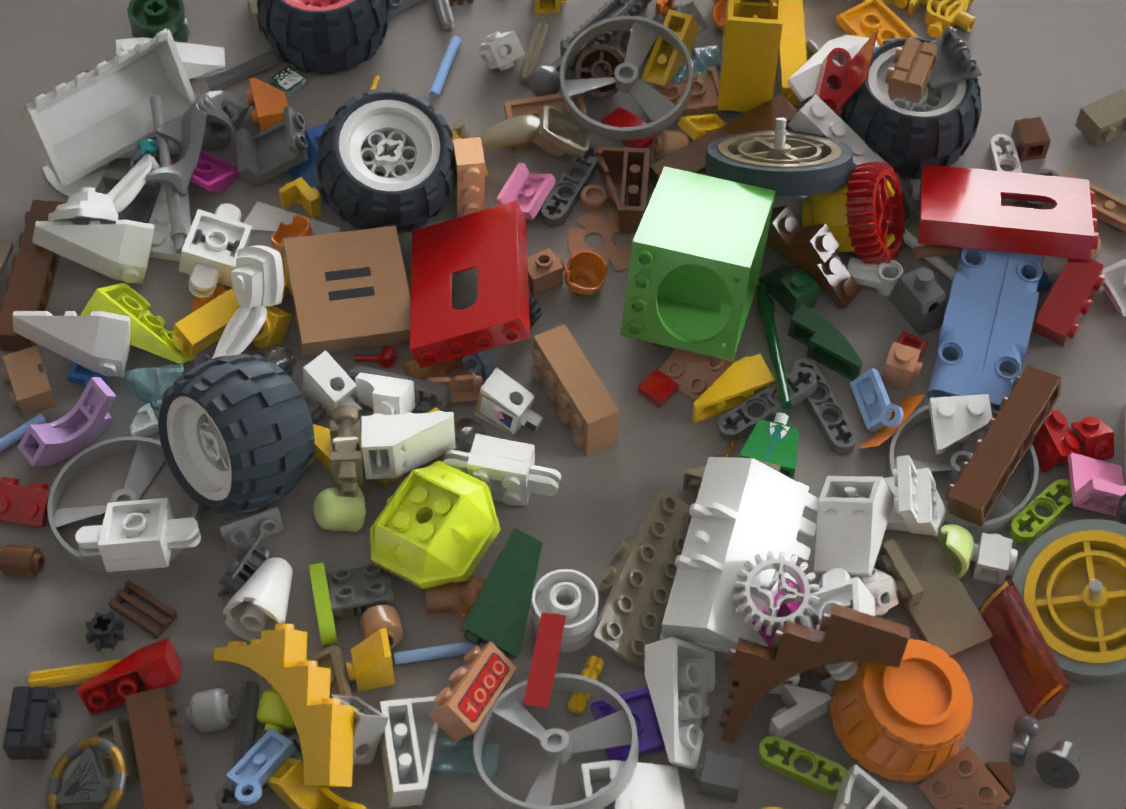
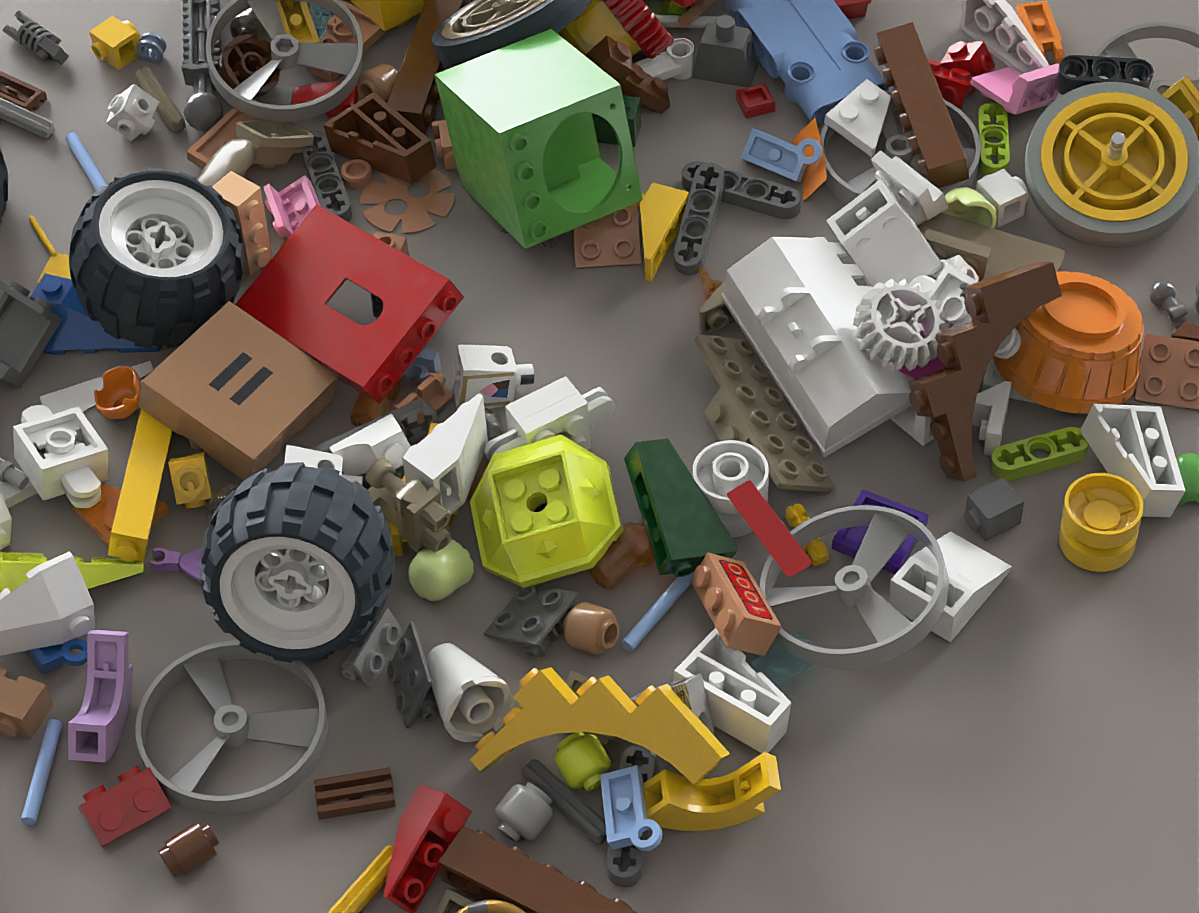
camera: 40 degrees left, 5 degrees down
(101, 623) = (345, 835): black gear -> none
(138, 535) = (291, 726): white brick -> none
(144, 423) = (162, 648): white tile -> none
(151, 383) = (145, 606): clear light blue slope -> none
(256, 284) = (160, 433): white piece -> none
(301, 193) = (86, 356): yellow bracket -> none
(322, 604) = (511, 649): lime beam -> none
(372, 662) = (622, 651): yellow slope -> none
(385, 359) = (326, 429): red hand -> none
(564, 12) = (151, 47): none -> sand blue bush
(575, 390) = (535, 319): medium nougat brick -> none
(585, 273) = (428, 231): orange hair -> none
(658, 388) = (592, 275): red tile -> none
(679, 685) = (878, 467): white wedge -> none
(700, 125) = (389, 50): yellow plate -> none
(766, 308) = (610, 151): dark green bar -> none
(774, 444) = (735, 239): green torso -> none
(825, 342) = (689, 141): dark green slope -> none
(901, 366) = (770, 112): nougat brick -> none
(1023, 652) = (1105, 238): clear red slope -> none

